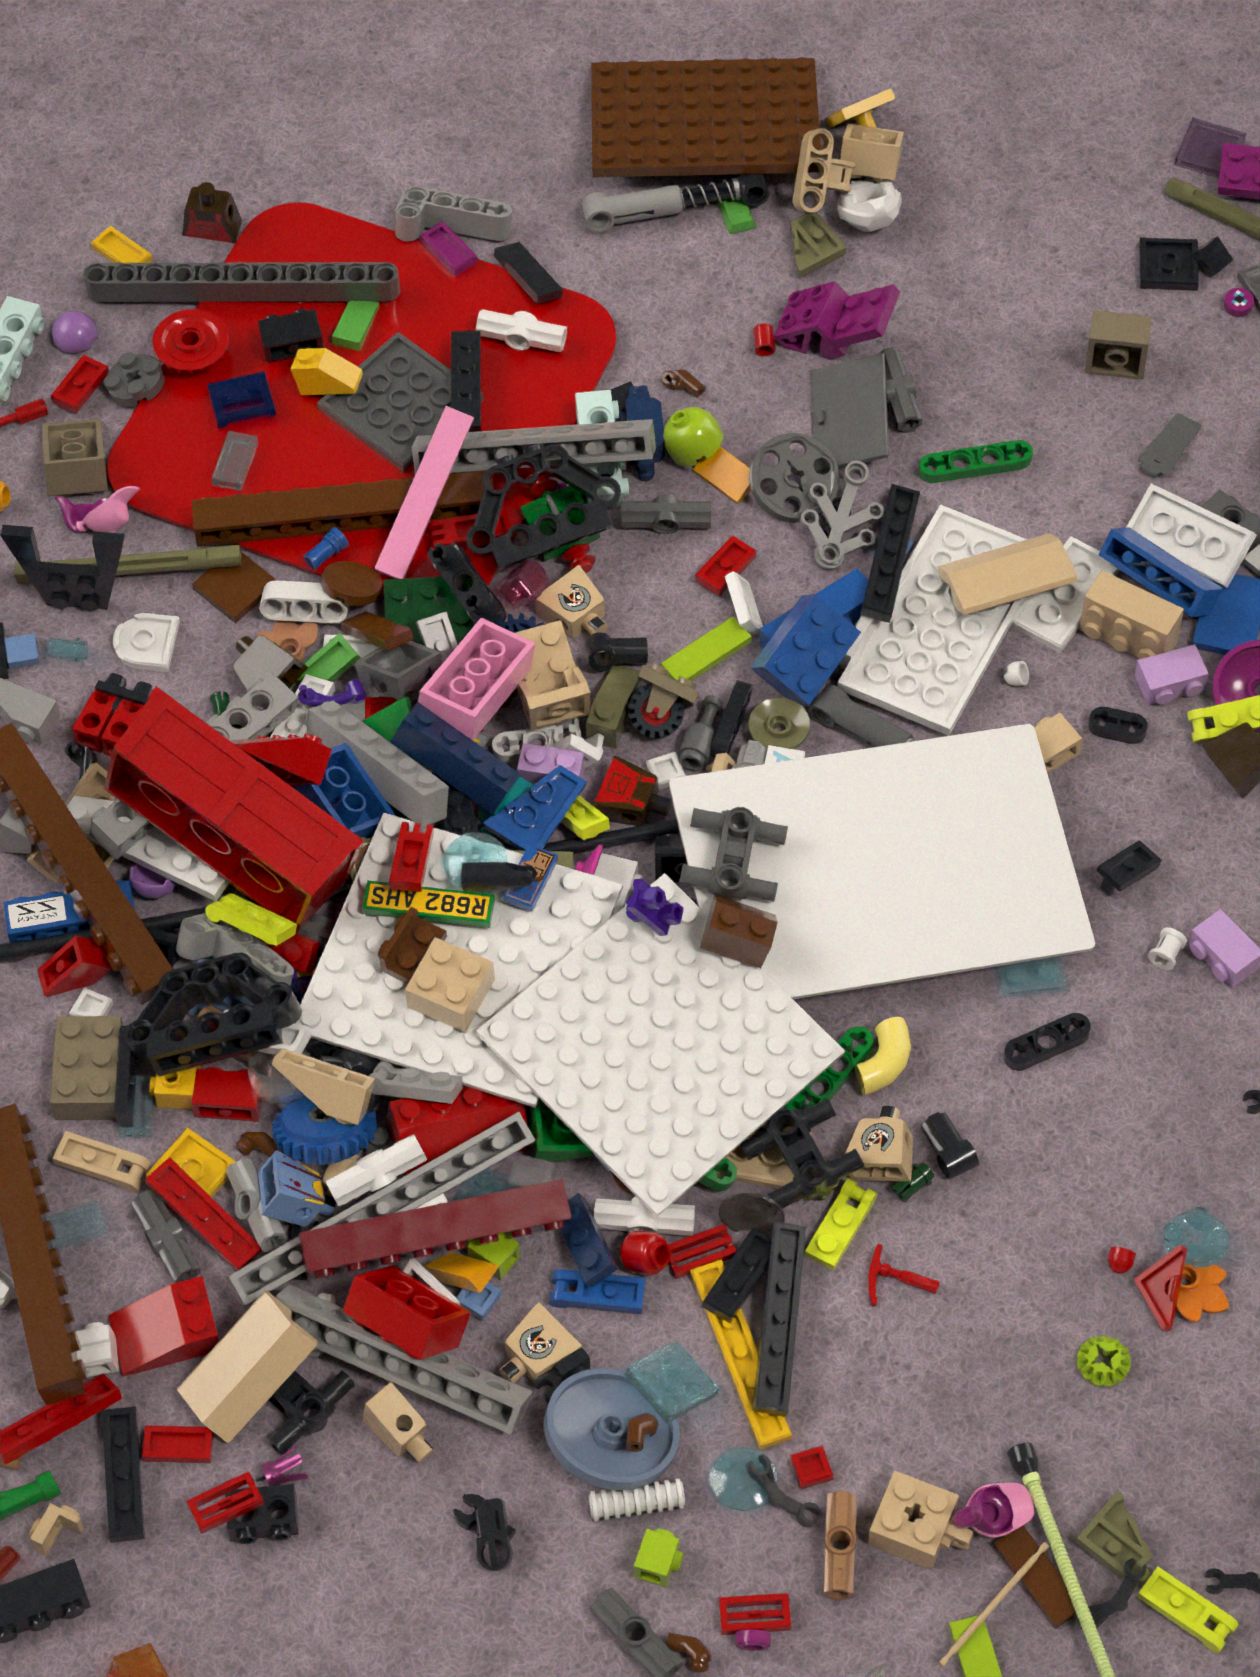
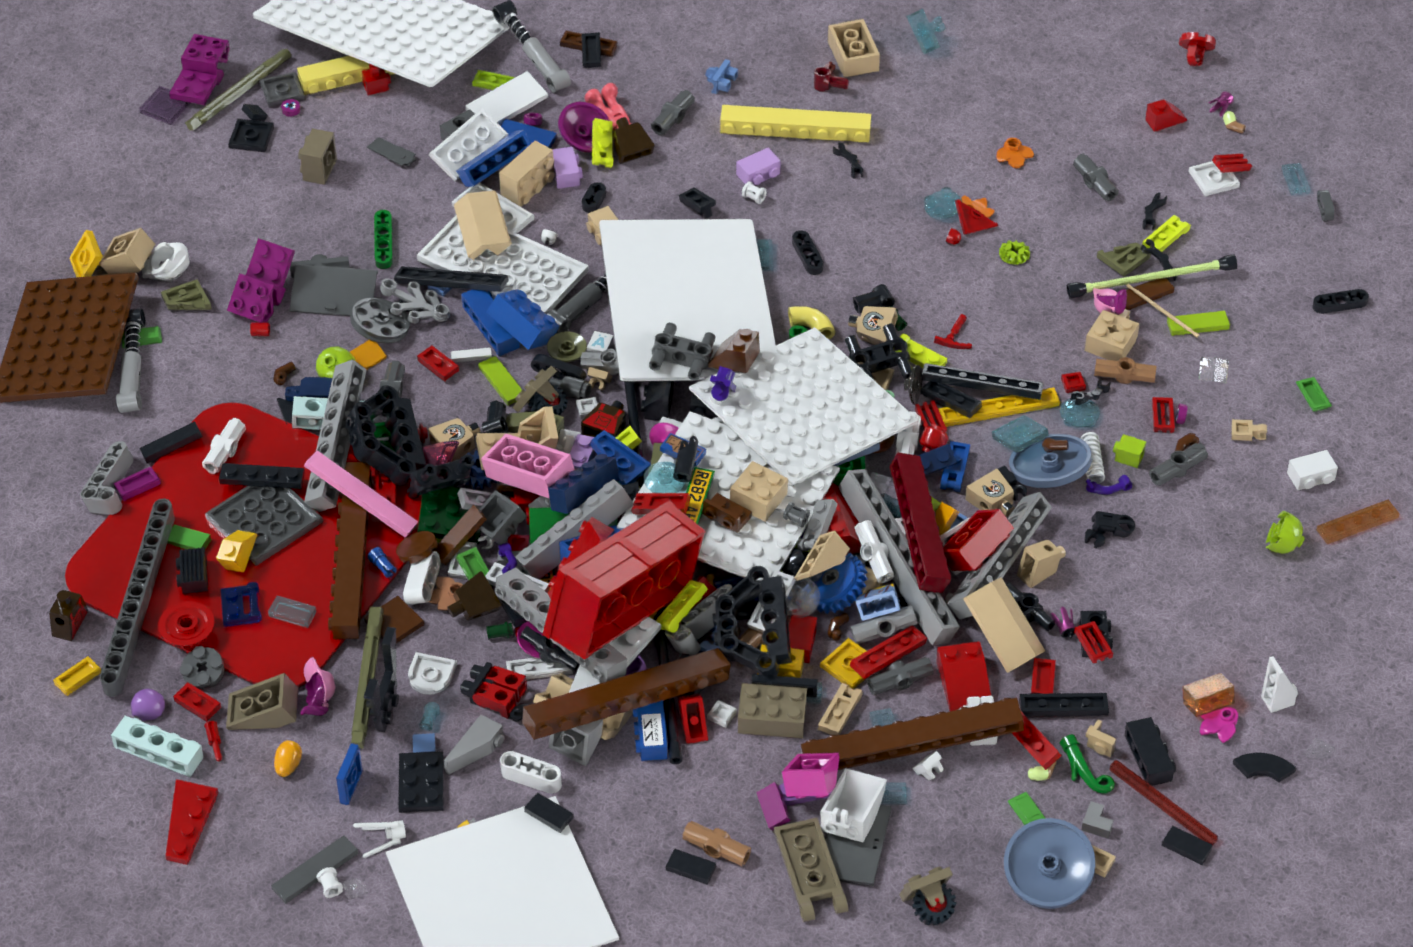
camera: 85 degrees left, 10 degrees down
(410, 1053) = (796, 514): none -> dark grey bush
(579, 1508) = (1124, 484): none -> dark purple piece
(832, 175) = (144, 273): tan piece -> none

